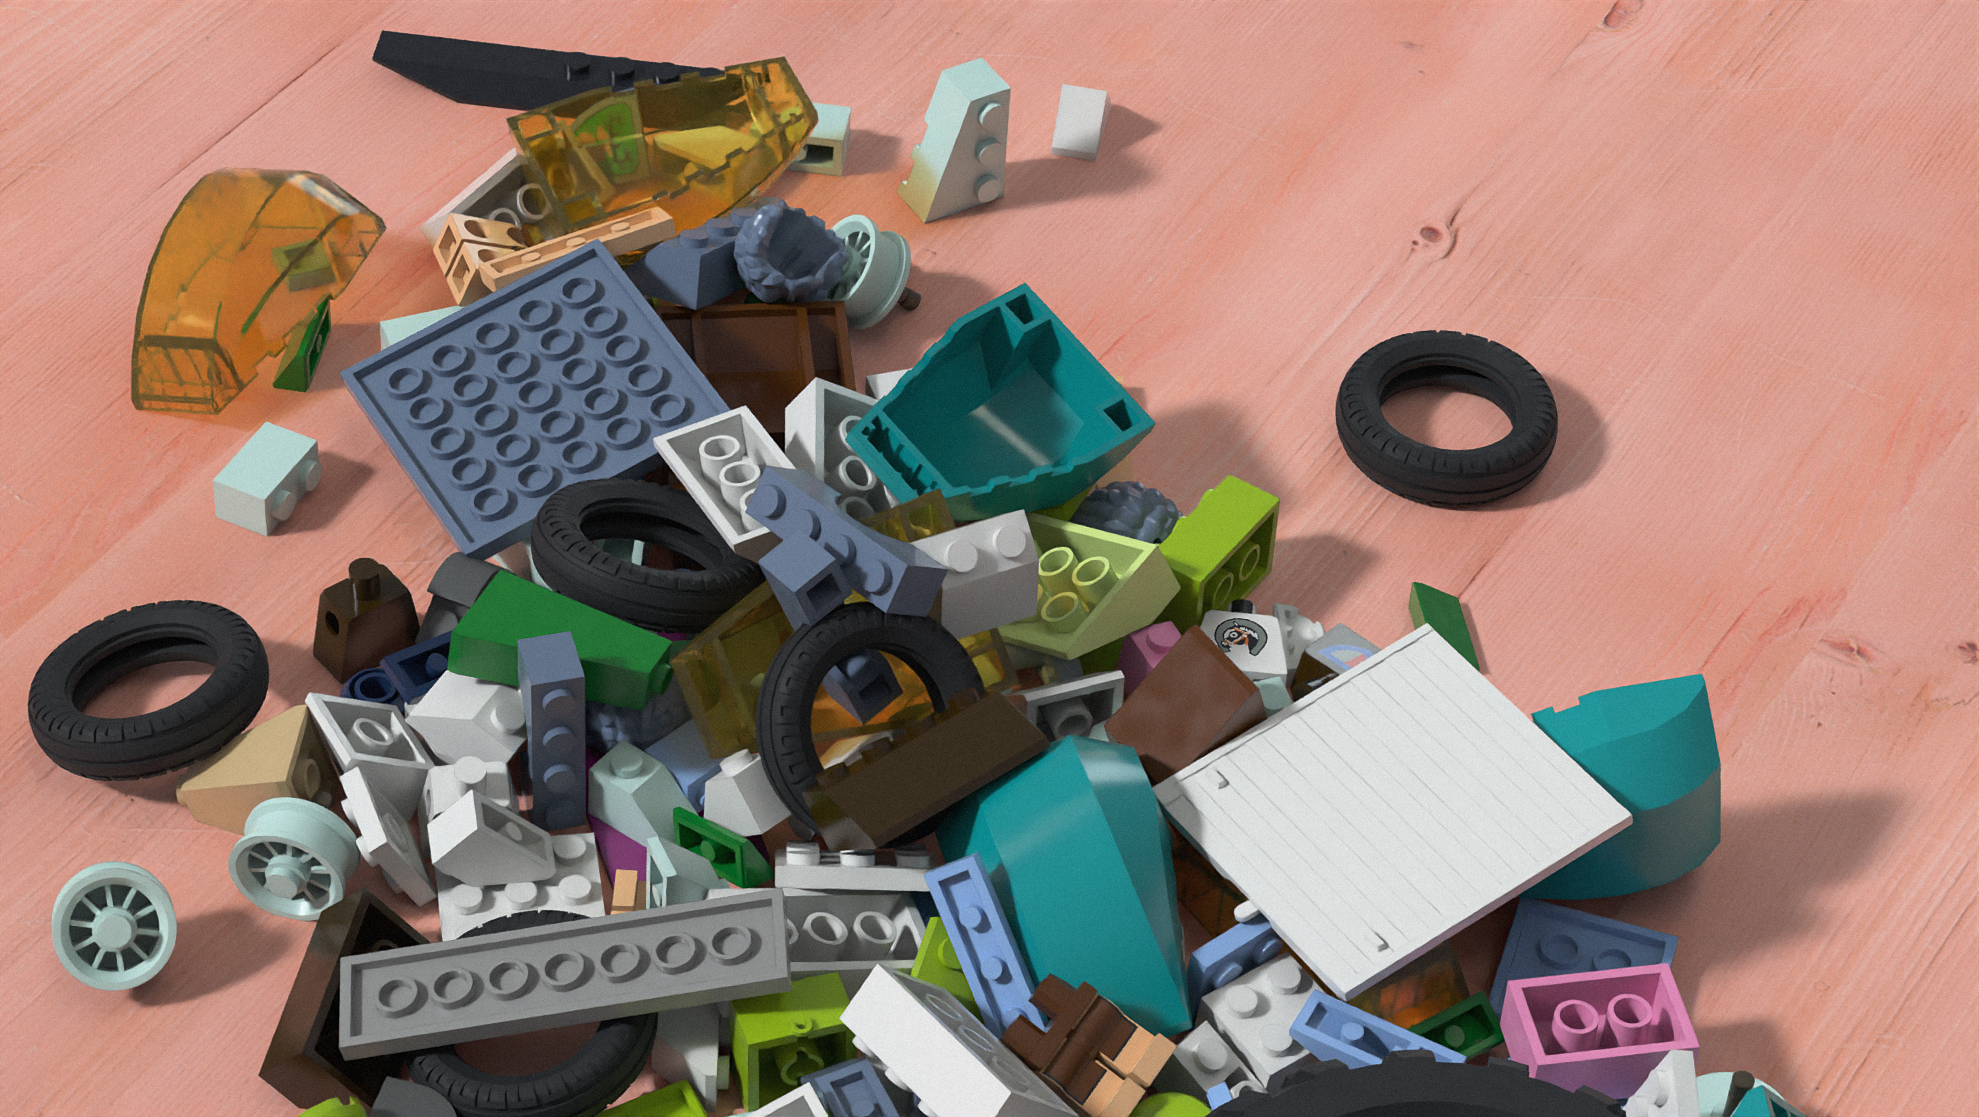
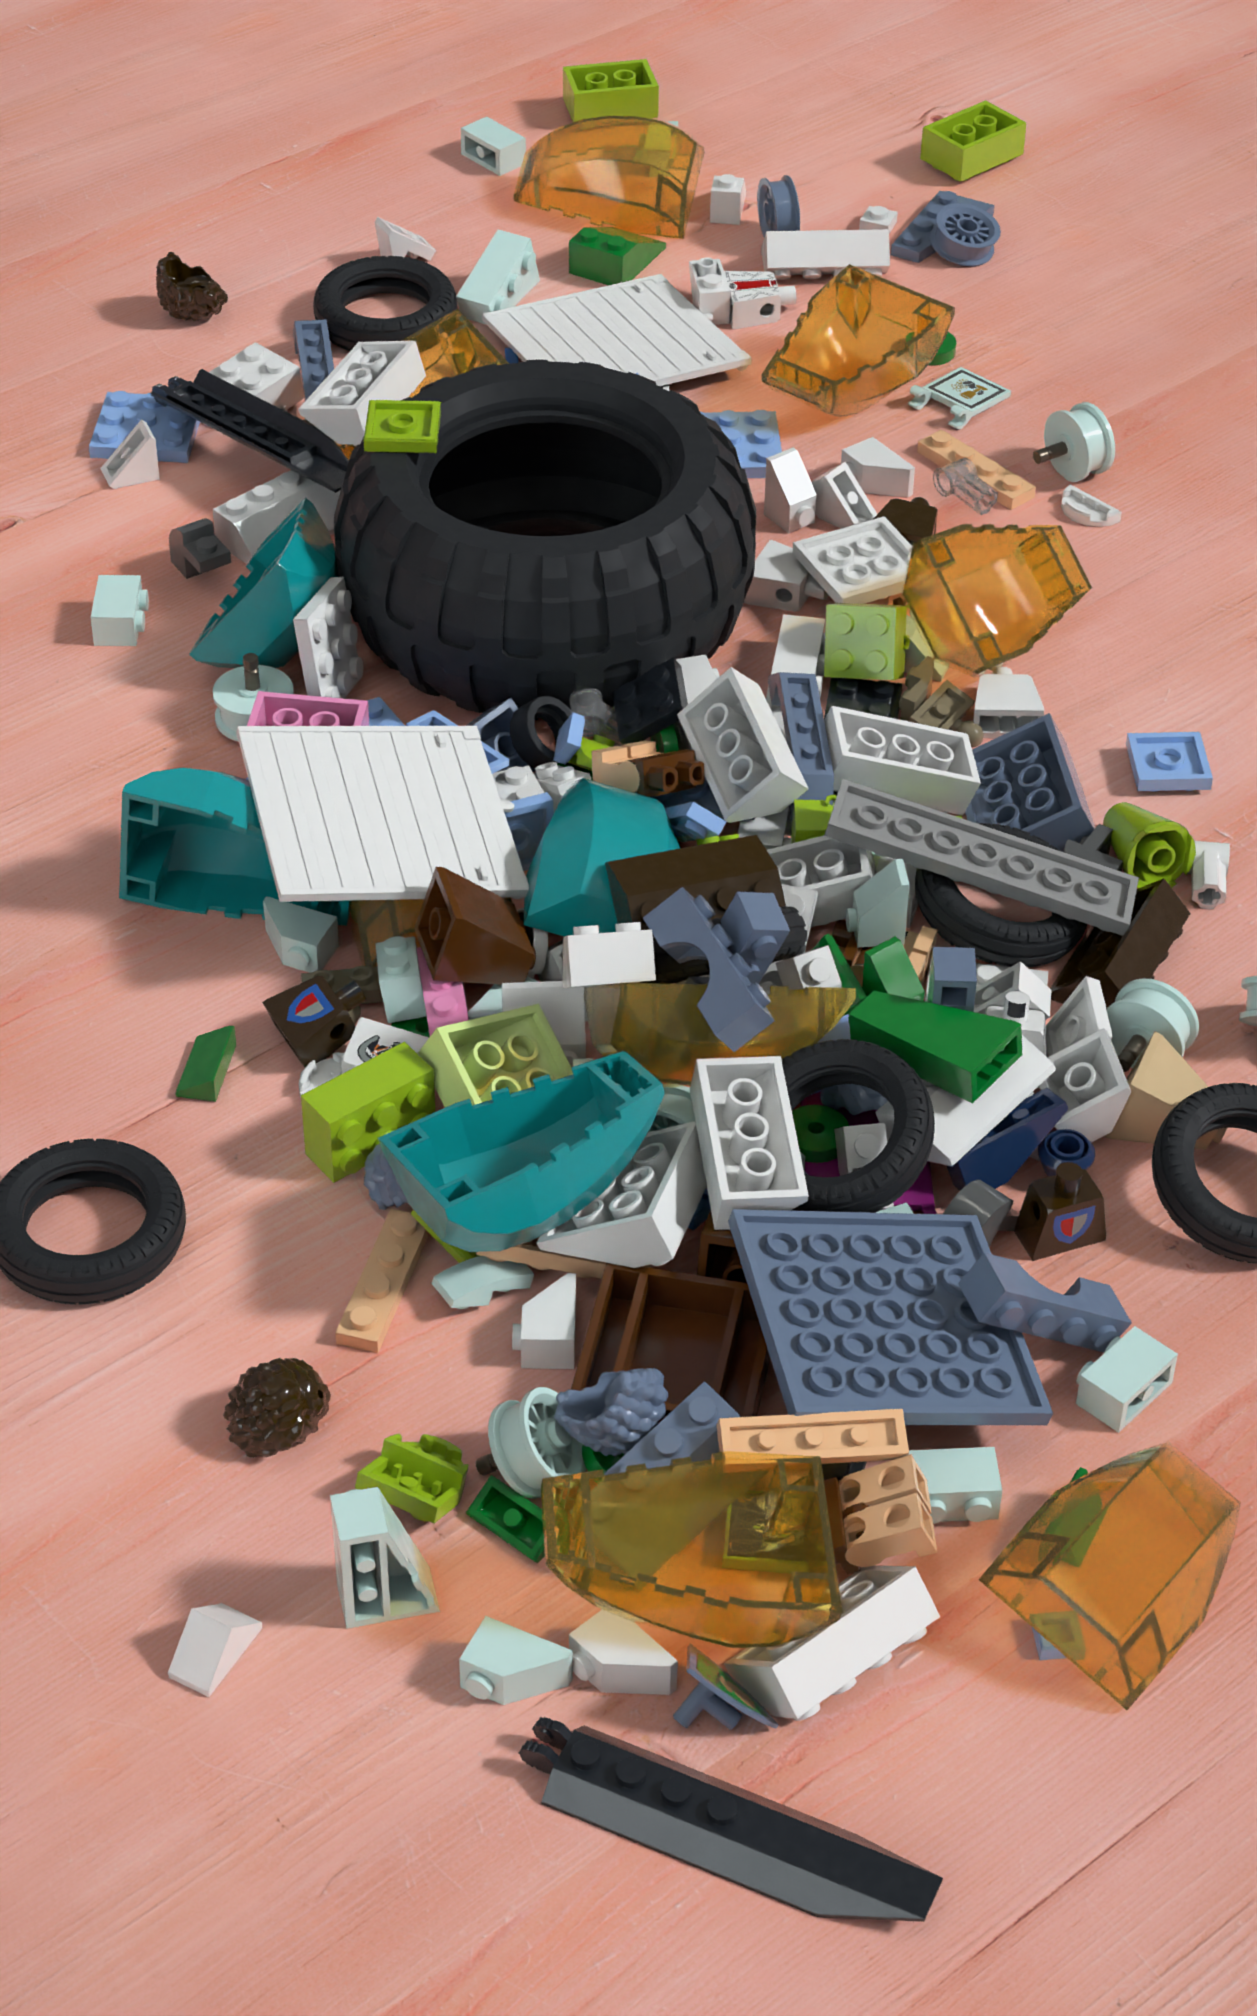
camera: 160 degrees left, 0 degrees up
(323, 506) = (1012, 1299): none -> sand blue arch
(624, 839) = (891, 971): none -> green slope
(969, 263) = (417, 1476): none -> lime slope
(1137, 285) = (275, 1406): none -> dark brown hair

